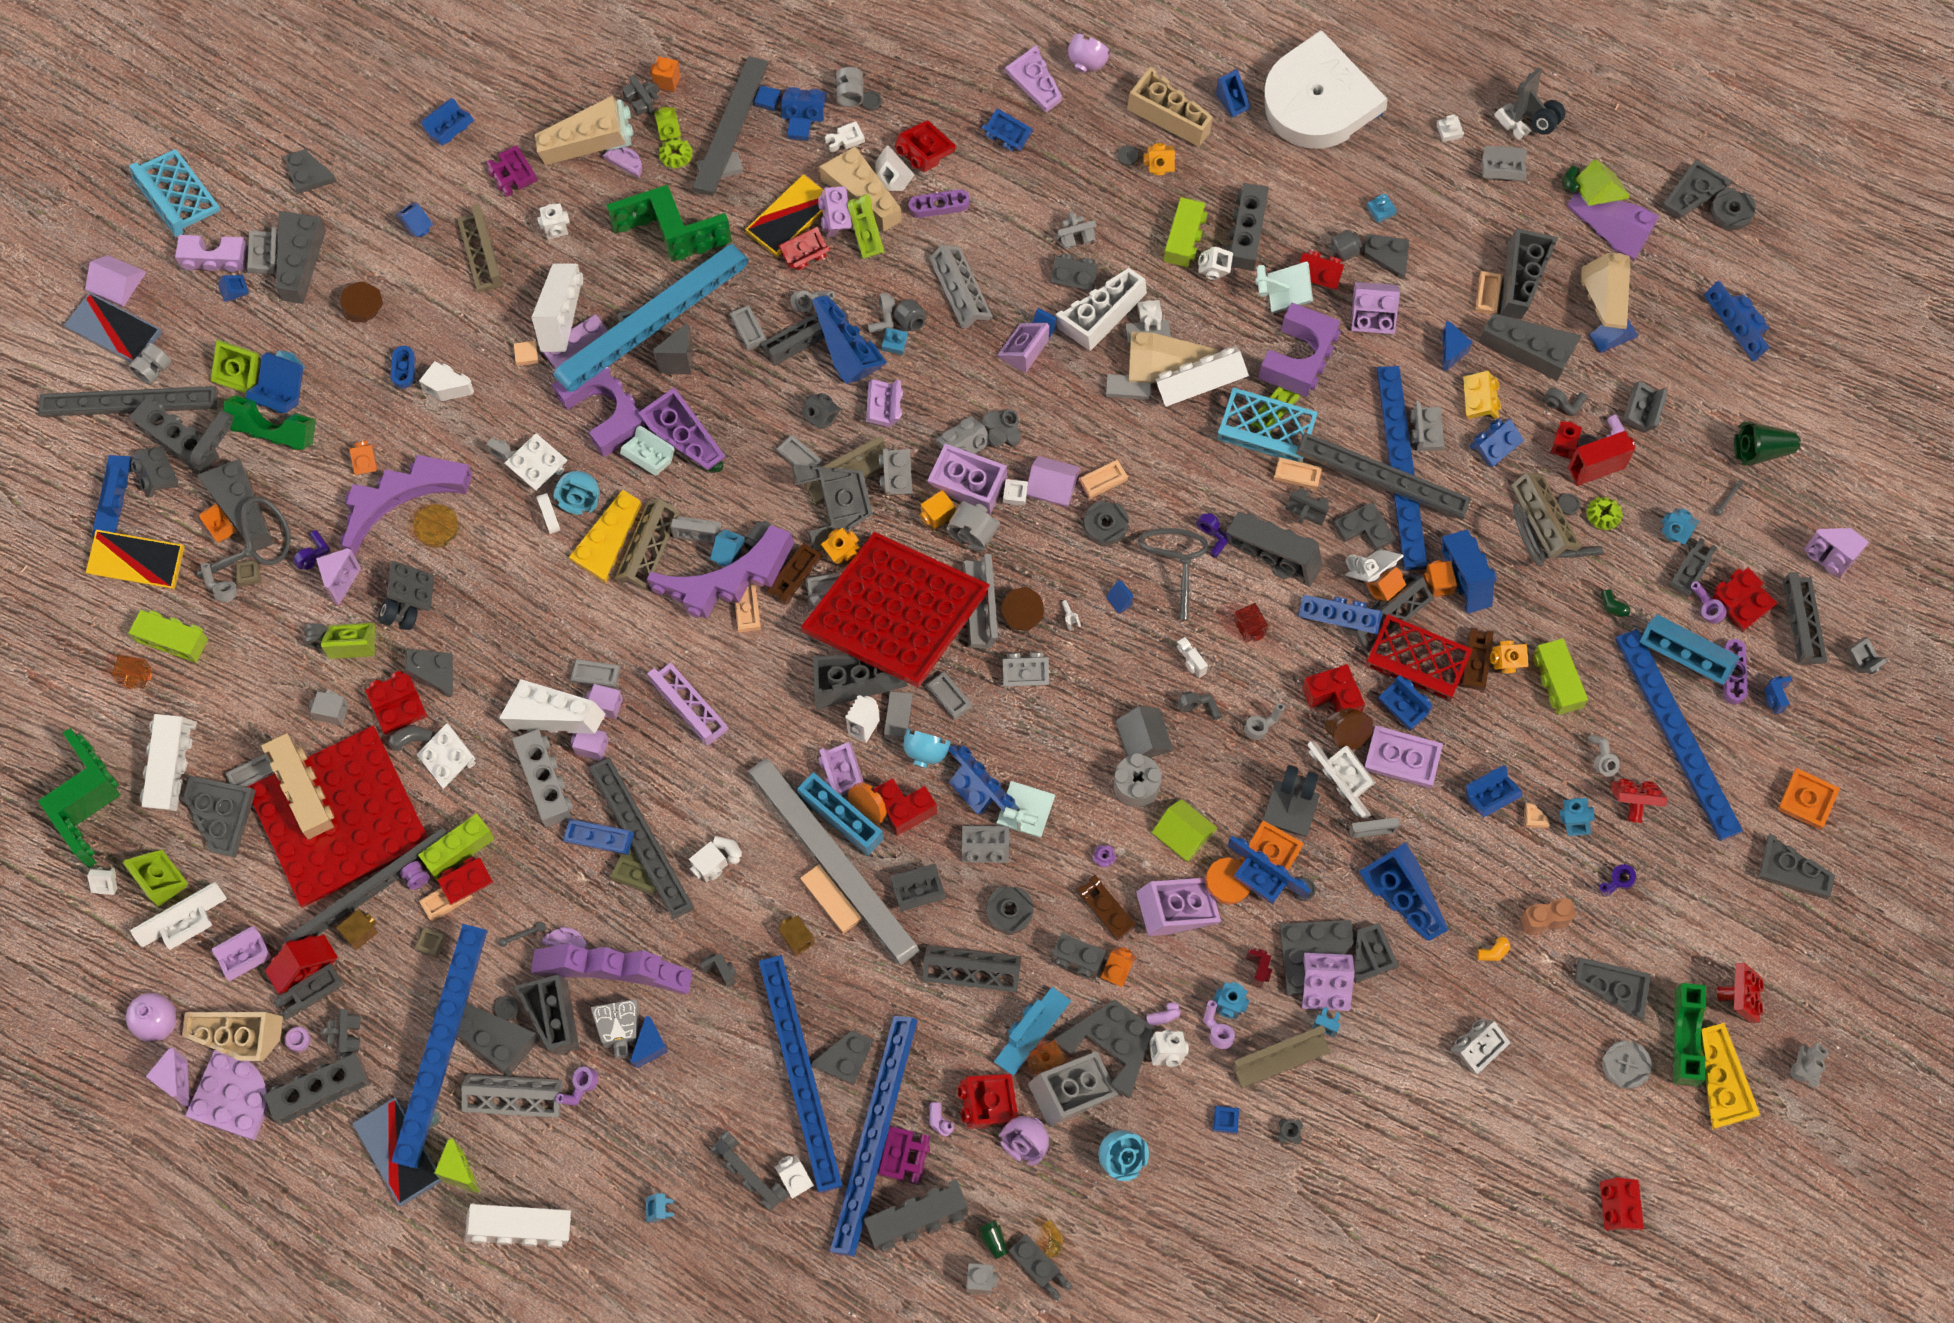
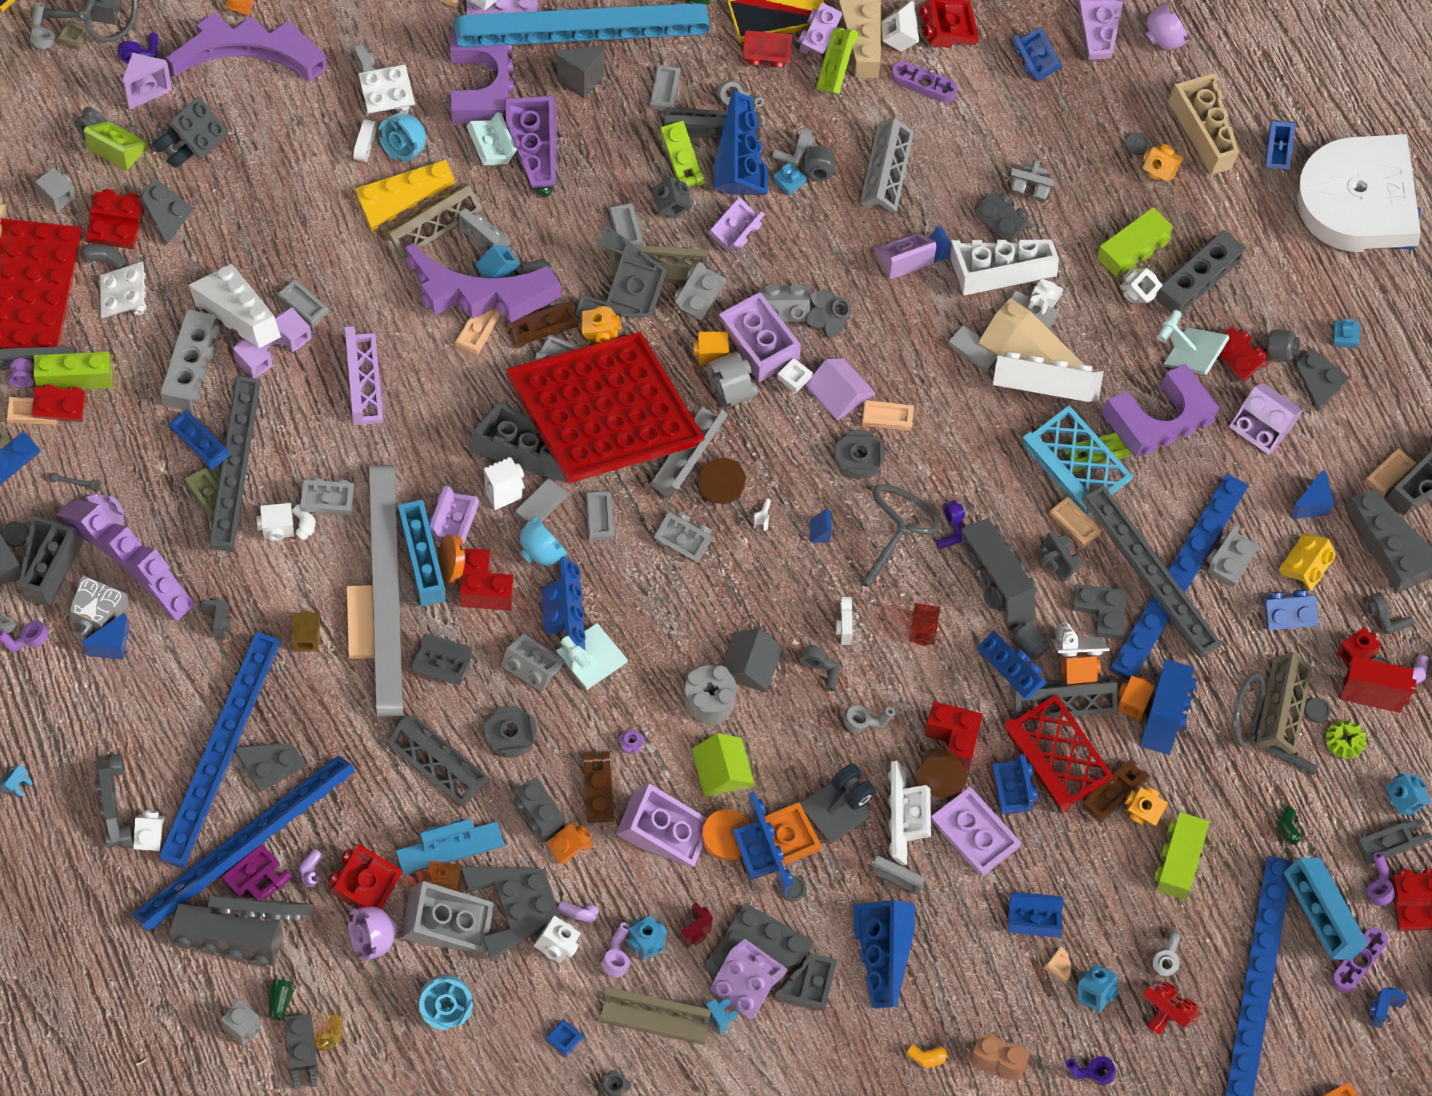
camera: 30 degrees right, 5 degrees down
(436, 525) = (261, 92): clear yellow tile -> none
(733, 817) = (327, 496): none -> light grey bracket
(802, 372) = (681, 153): none -> lime plate
(947, 1170) = (253, 907): none -> dark grey plate
(1334, 584) = (1030, 640): none -> dark grey brick

